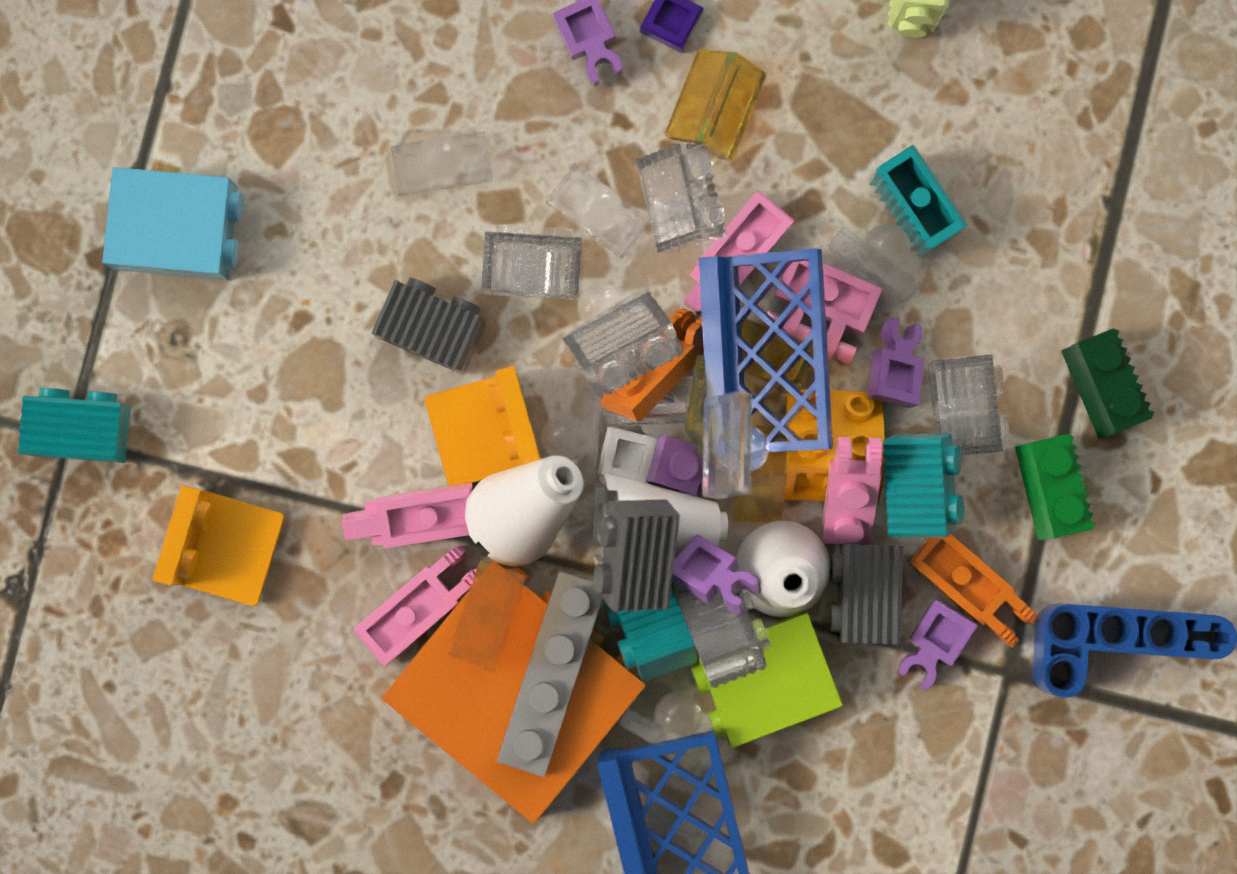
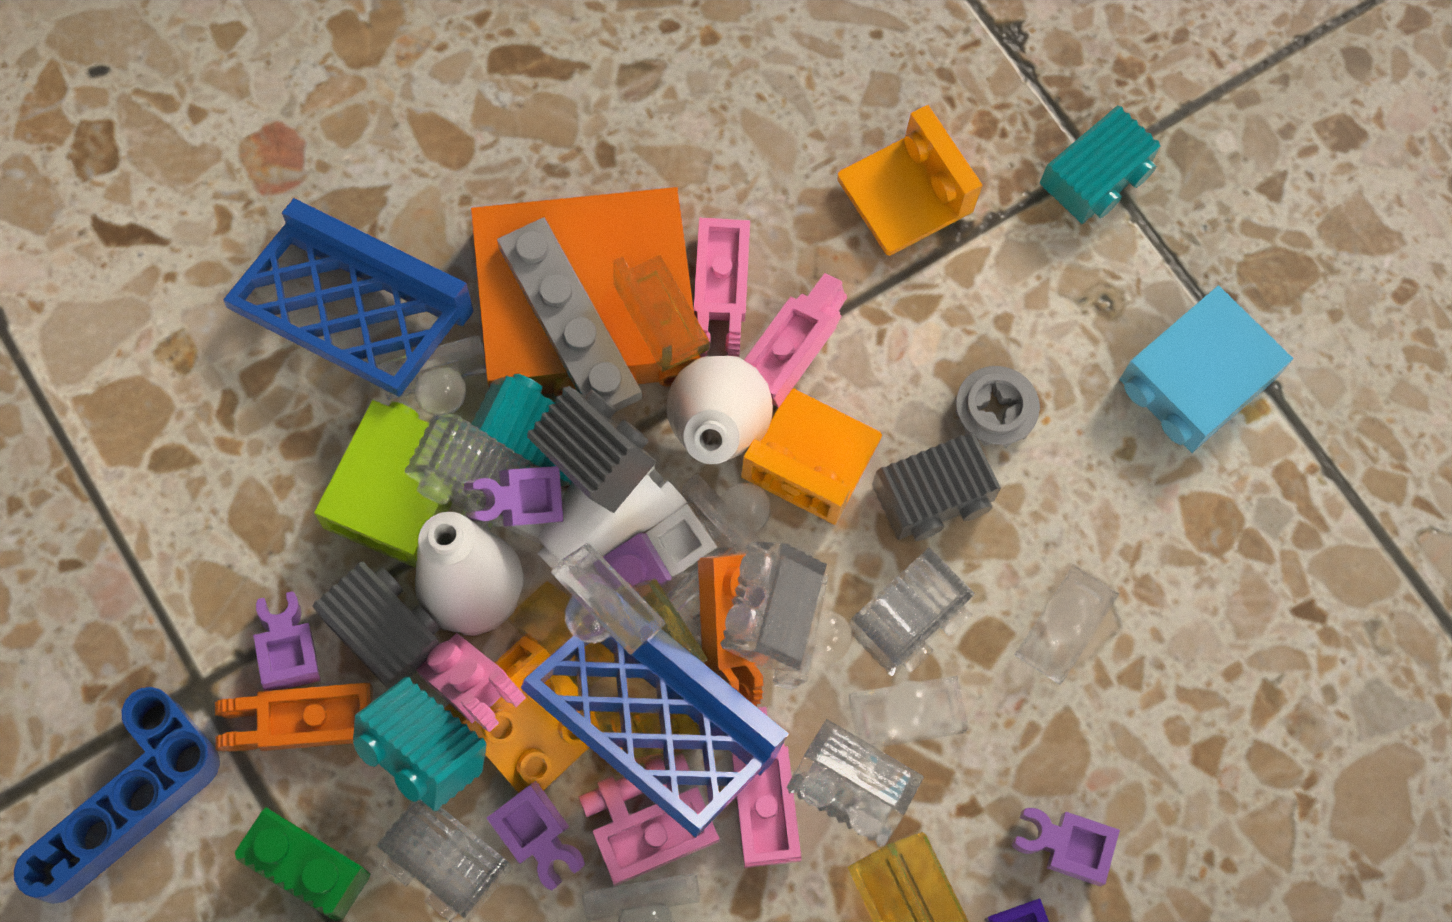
camera: 130 degrees right, 15 degrees down
(327, 318) = (1010, 389): none -> light grey gear

